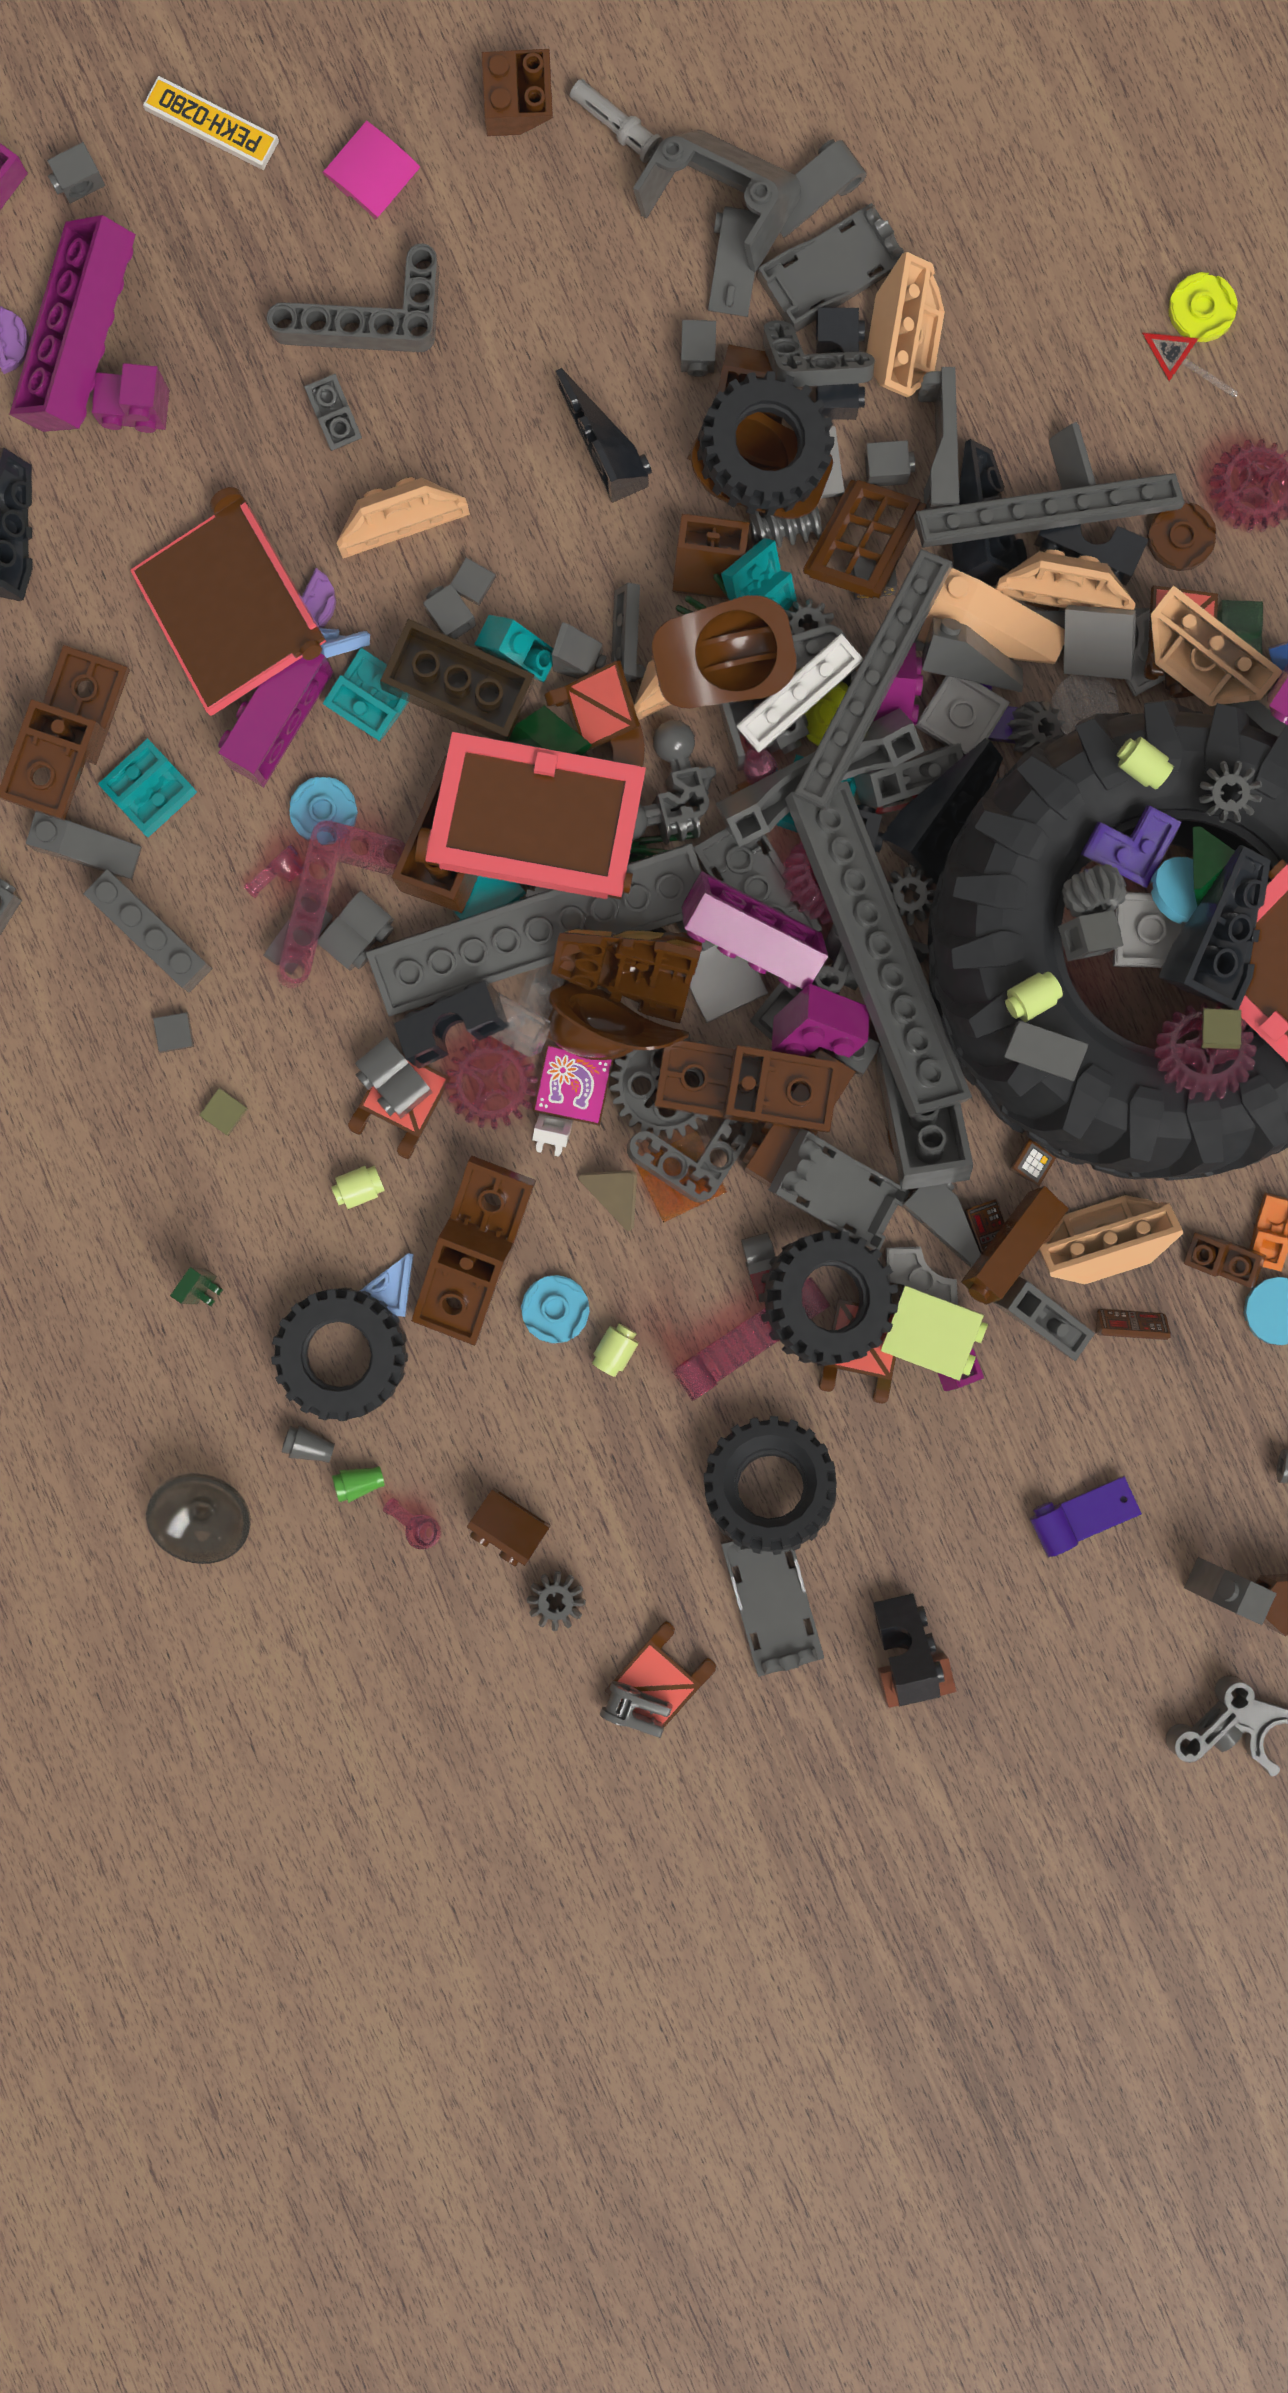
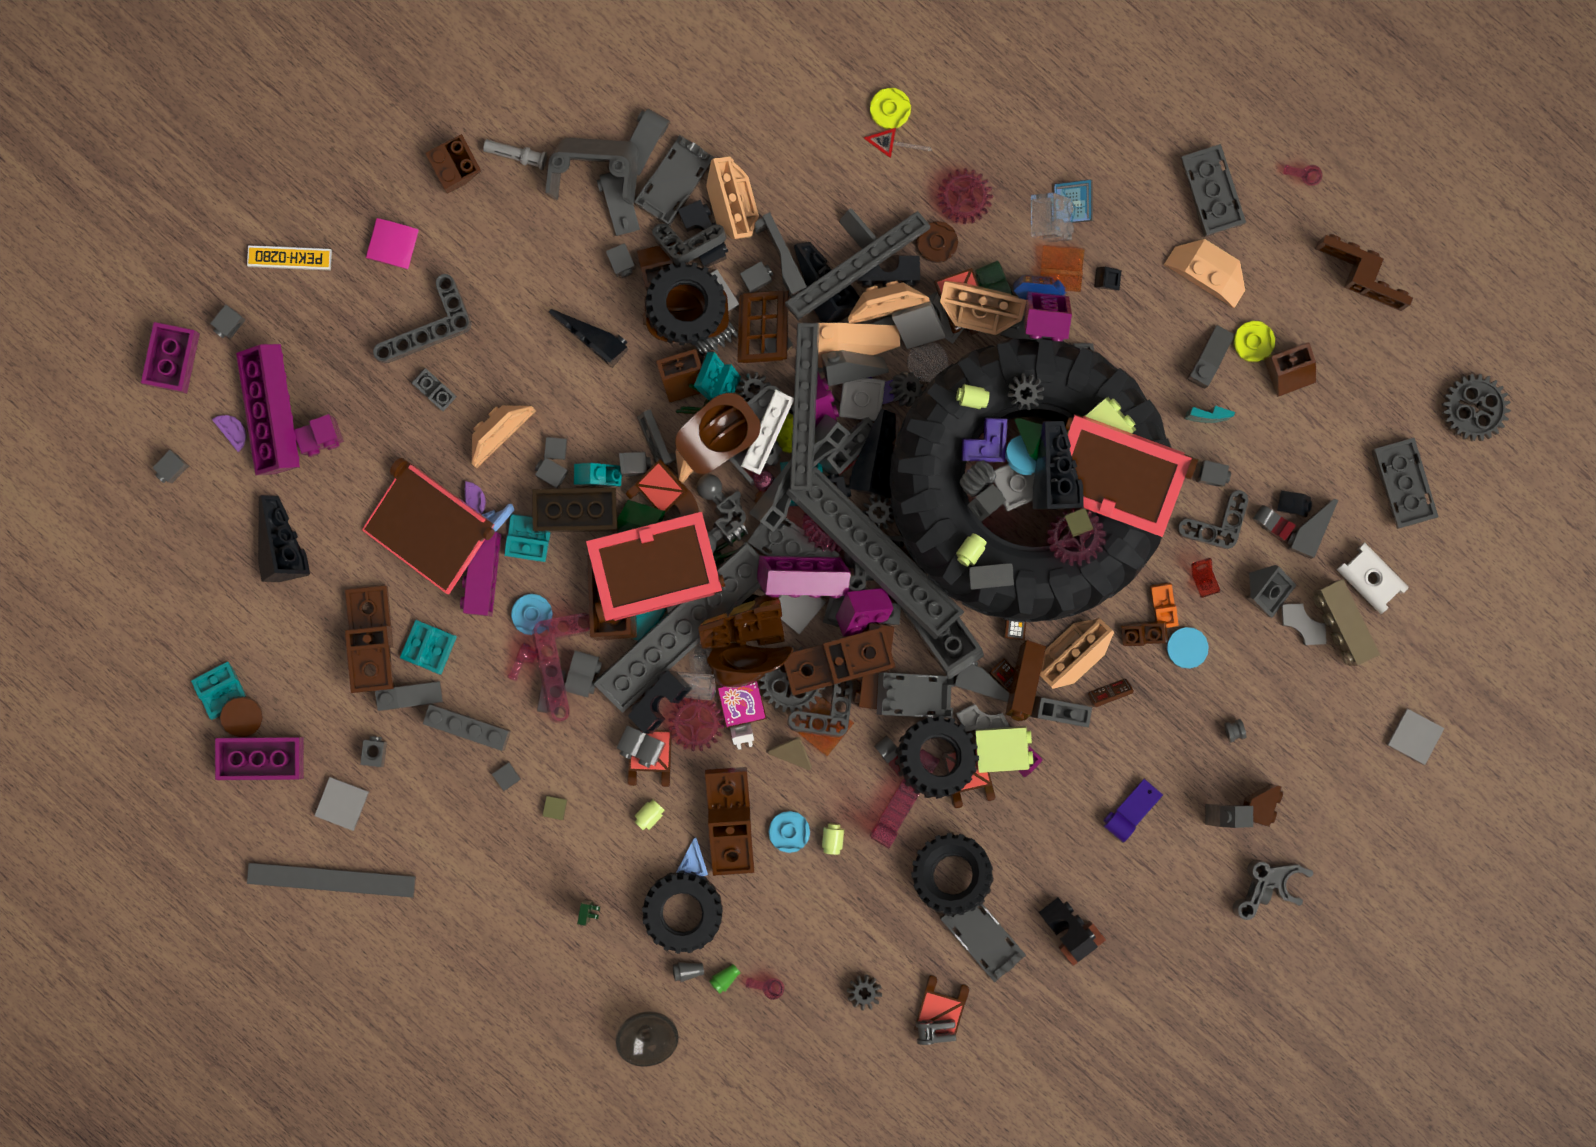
camera: 30 degrees left, 0 degrees up
(507, 1527) = (819, 964): reddish brown slope -> none

